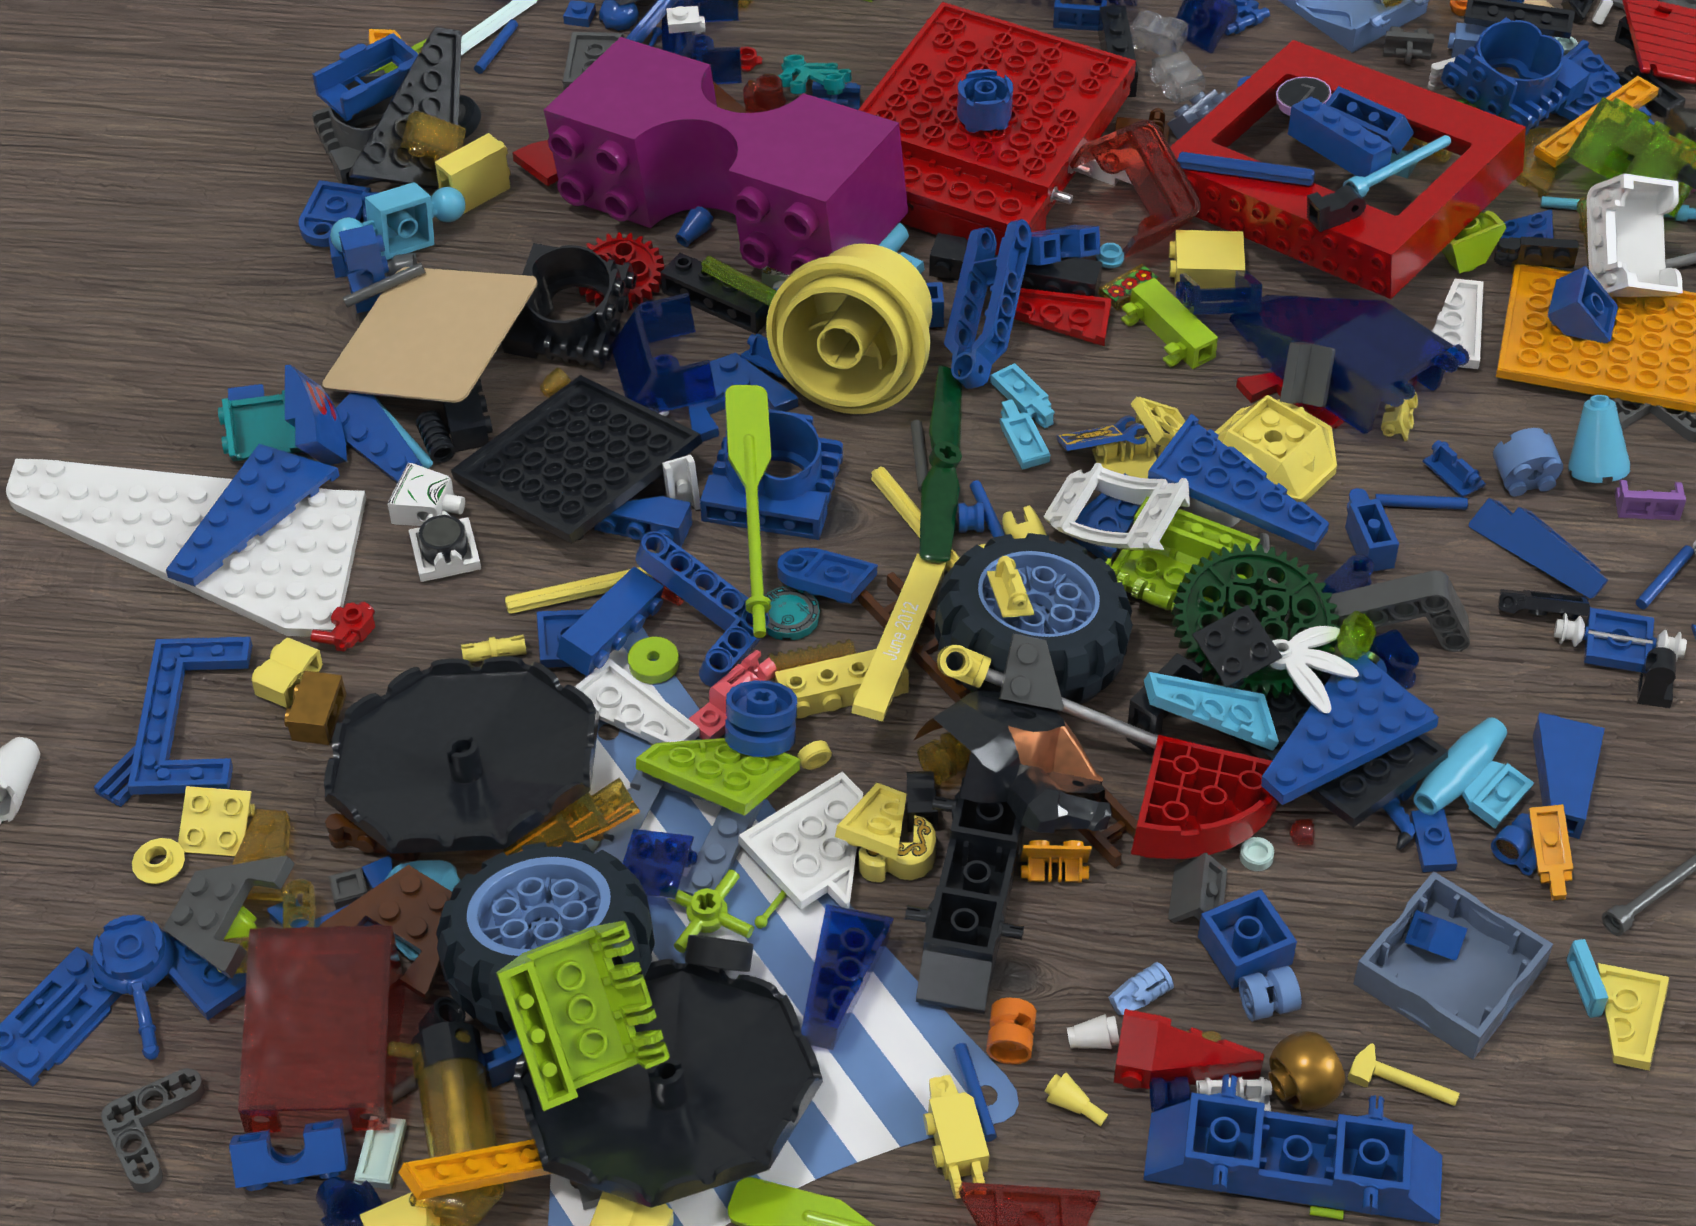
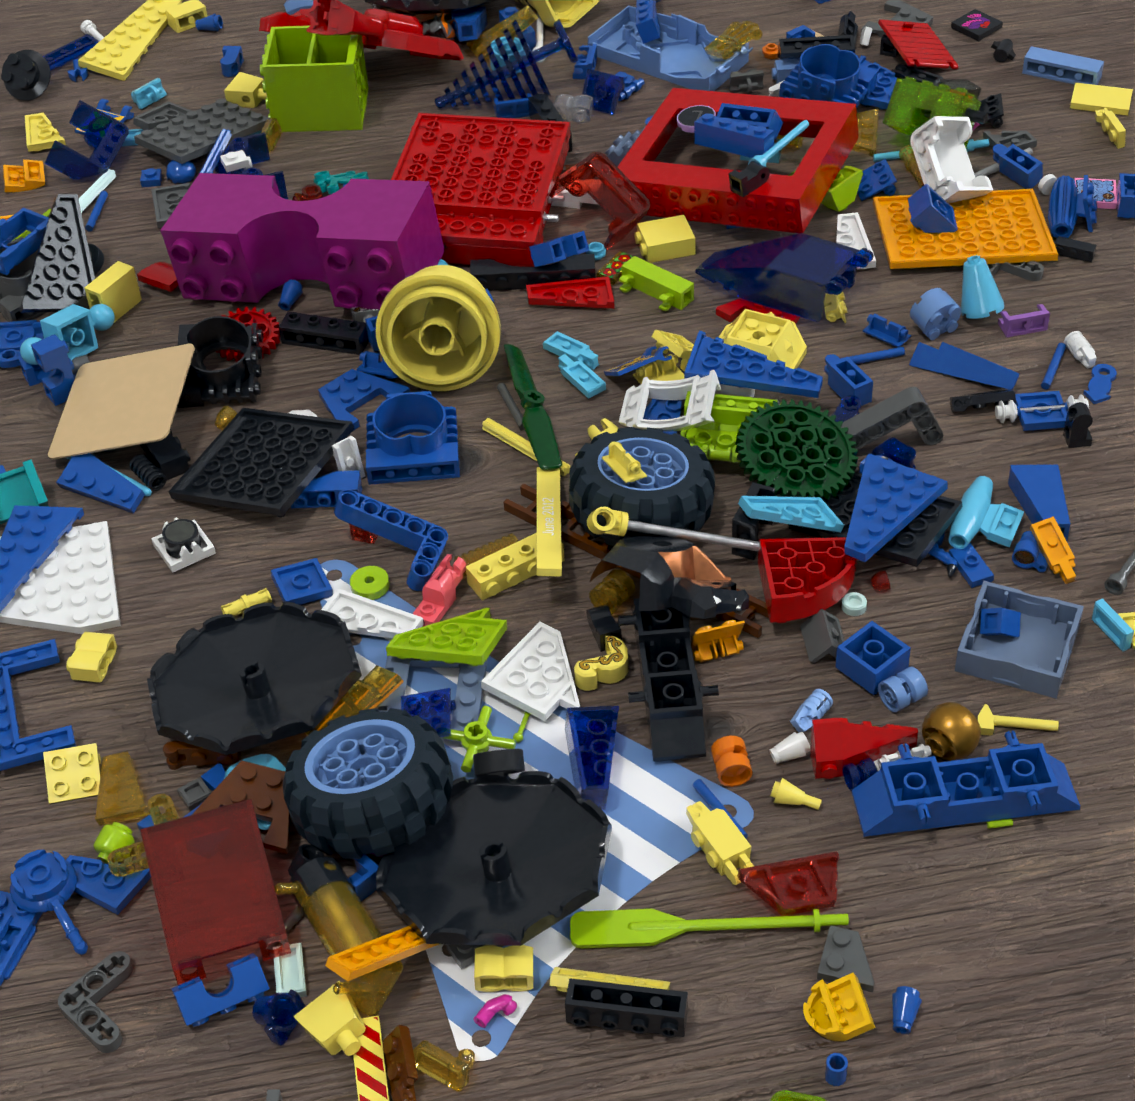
camera: 15 degrees left, 5 degrees down
(159, 872) = (41, 820): light yellow piece -> none
(213, 903) = (96, 827): dark grey wing -> none
(314, 418) = (52, 477): blue slope -> none
(315, 707) = (123, 675): pearl gold brick -> none
(351, 626) = (131, 613): red piece -> none
(384, 284) = (70, 380): dark grey bar -> none
(420, 494) = (151, 512): white torso -> none
(431, 136) = (75, 271): clear yellow brick -> none
(563, 592) = (296, 549): light yellow axle -> none
(580, 1011) = (421, 817): lime slope -> none
(610, 621) = (330, 562): blue brick -> none
(660, 380) = (304, 395): clear blue windscreen -> none
(738, 280) = (343, 318): clear neon green axle -> none
(749, 58) = (290, 181): red plate -> none
(750, 455) = (397, 425): lime piece -> none
(760, 718) = (468, 598): blue wheel -> none
(792, 613) = (462, 527): tile -> none
(814, 755) = (515, 615): light yellow tile -> none
(825, 573) = (475, 495): blue plate -> none
(875, 821) = (579, 646): light yellow wing -> none
(970, 517) = (565, 436): blue wheel -> none
(978, 272) = (511, 277): blue piece -> none
(984, 101) = (477, 164): blue brick -> none
(989, 514) = (572, 428): blue bar -> none
(1030, 674) = (659, 516): dark grey wing -> none
(1177, 76) = (597, 131): clear brick -> none
(1237, 646) = (794, 467): black hinge -> none
(1243, 298) = (701, 253): clear blue panel -> none
(1246, 168) = (675, 169): blue axle -> none
(1299, 656) = (839, 467): white plant -> none
(1307, 374) = (769, 288): dark grey panel -> none
(1356, 635) = (869, 444): clear neon green plate -> none
(1537, 252) = (887, 186): black hinge -> none
(1555, 148) = (874, 119): light orange tile -> none

